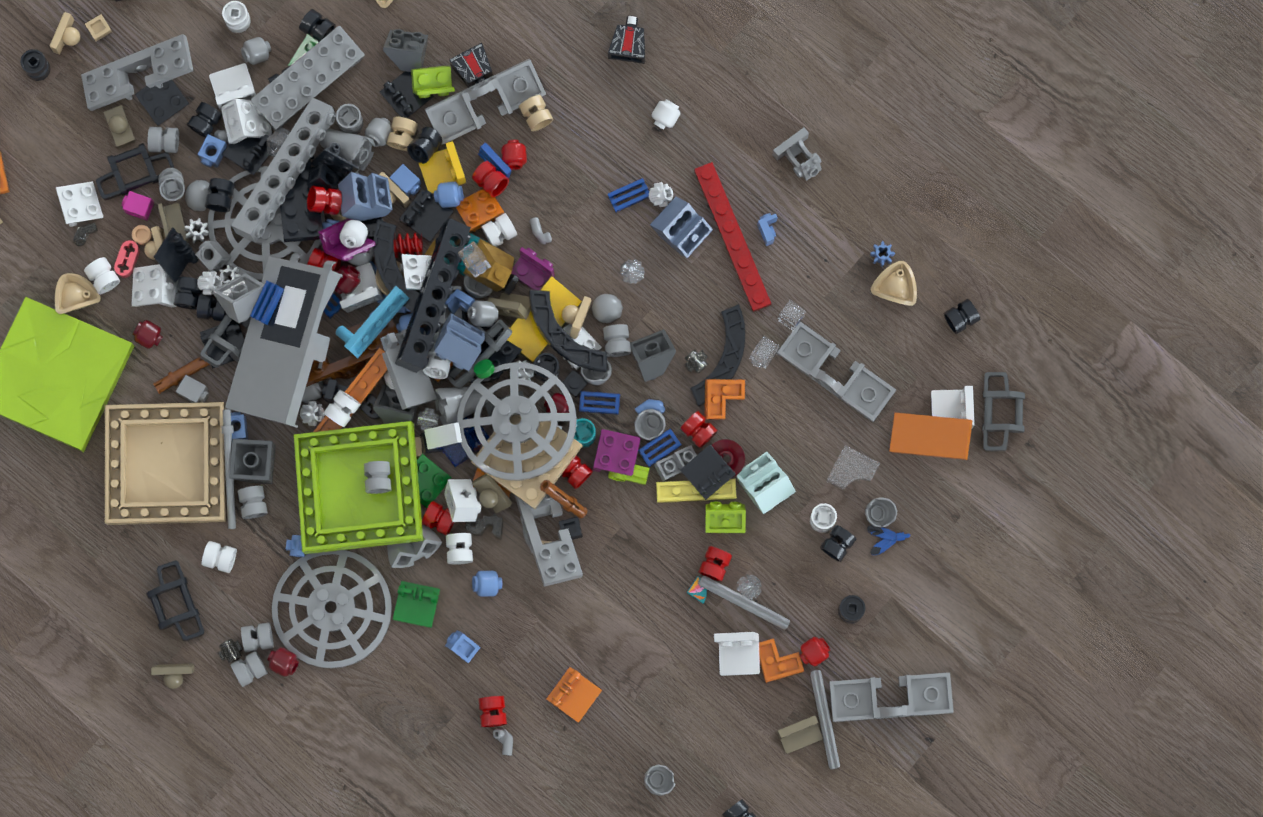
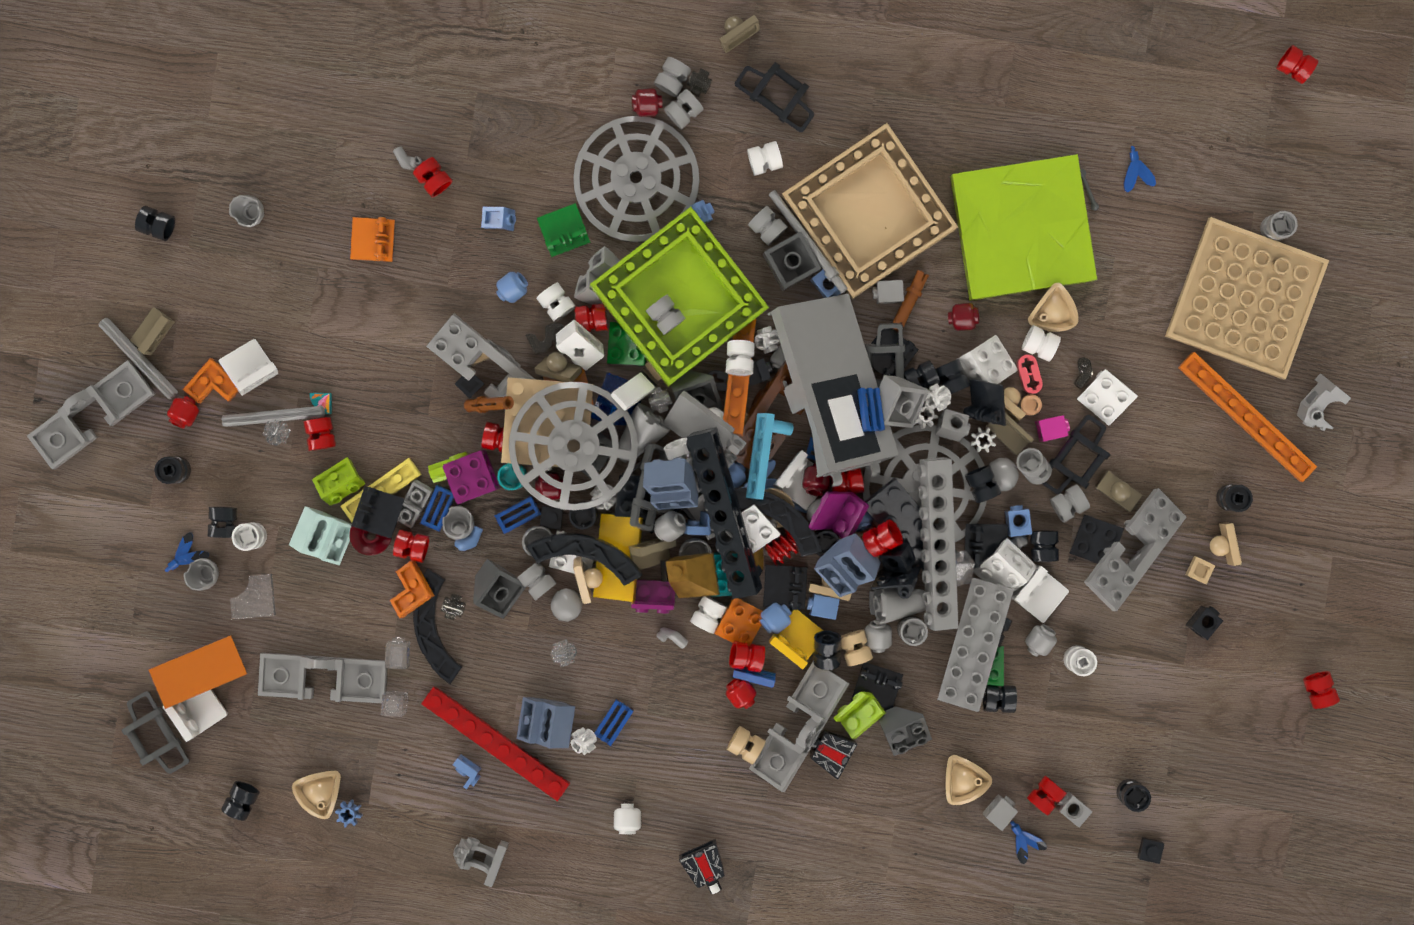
camera: 145 degrees right, 10 degrees up
(353, 234) = (834, 523): white head -> none
(474, 259) = (707, 570): clear brick -> none
(484, 368) = (633, 474): green tile -> none

